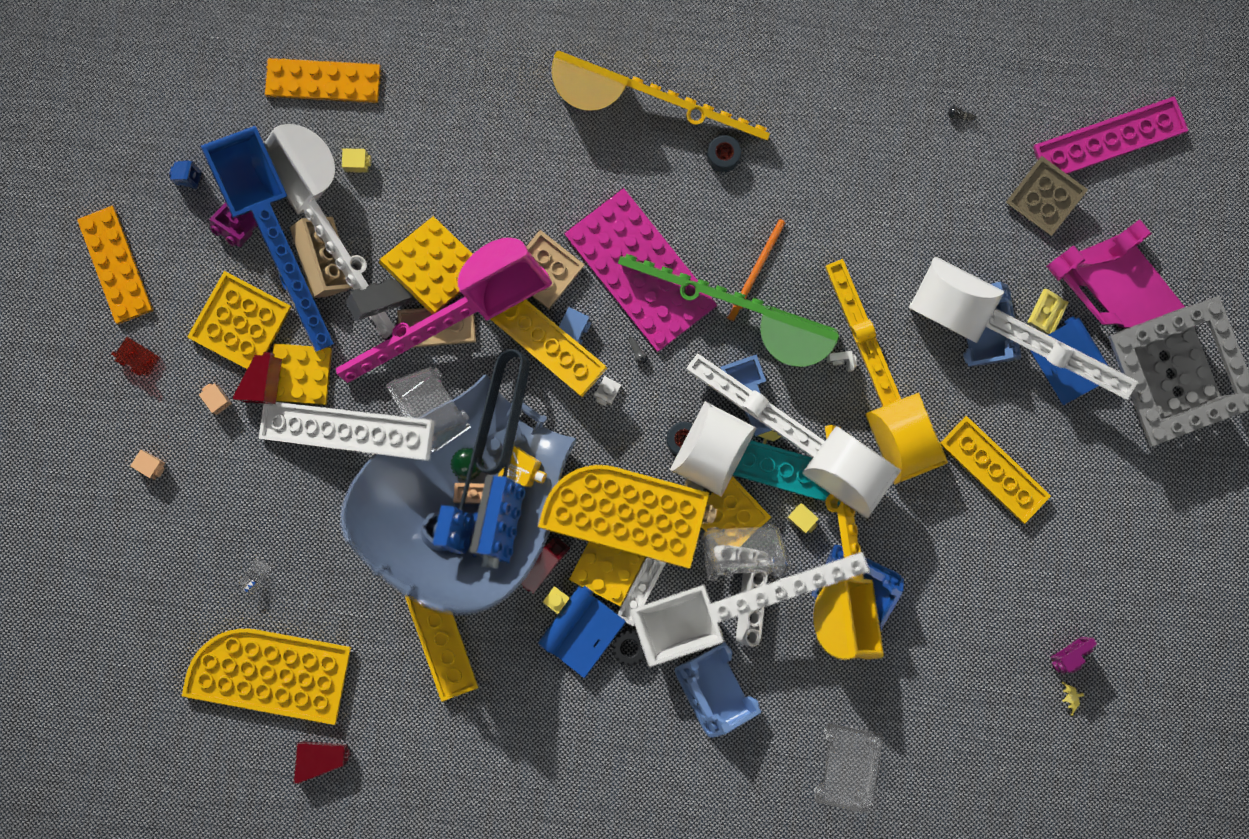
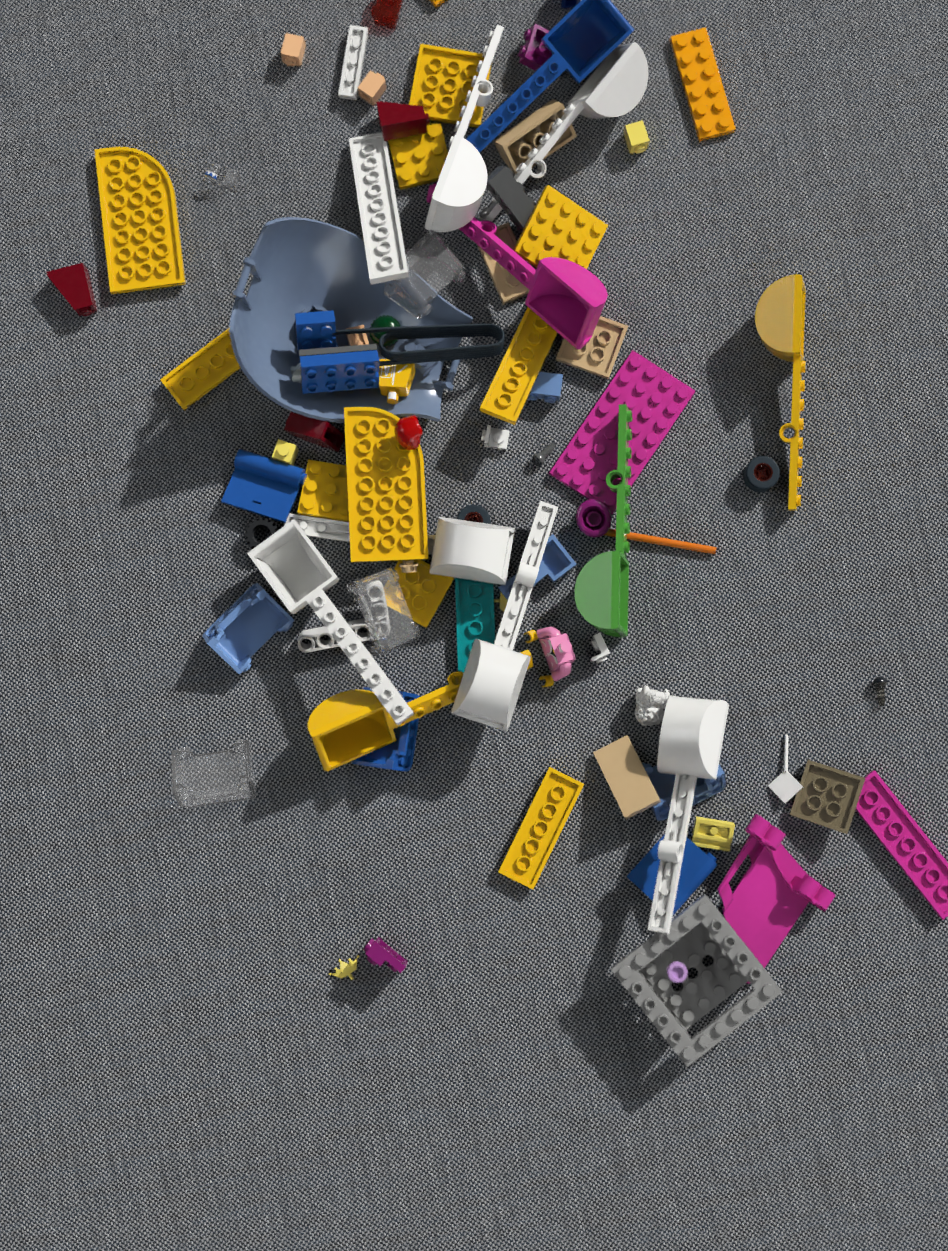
camera: 75 degrees right, 0 degrees up
(182, 409) = (353, 62): none -> white plate
(342, 335) = (464, 170): none -> white plate
(585, 471) = (408, 432): none -> red hair
(717, 323) = (593, 518): none -> magenta hat
(803, 519) = (434, 658): light yellow brick -> none
(833, 399) = (557, 652): none -> bright pink torso
(900, 425) = (555, 724): yellow plate -> none
(912, 329) = (650, 705): none -> white hair
(974, 373) = (627, 777): none -> tan tile
(1021, 230) = (785, 785): none -> white piece
(1174, 385) = (677, 972): none -> lavender tile

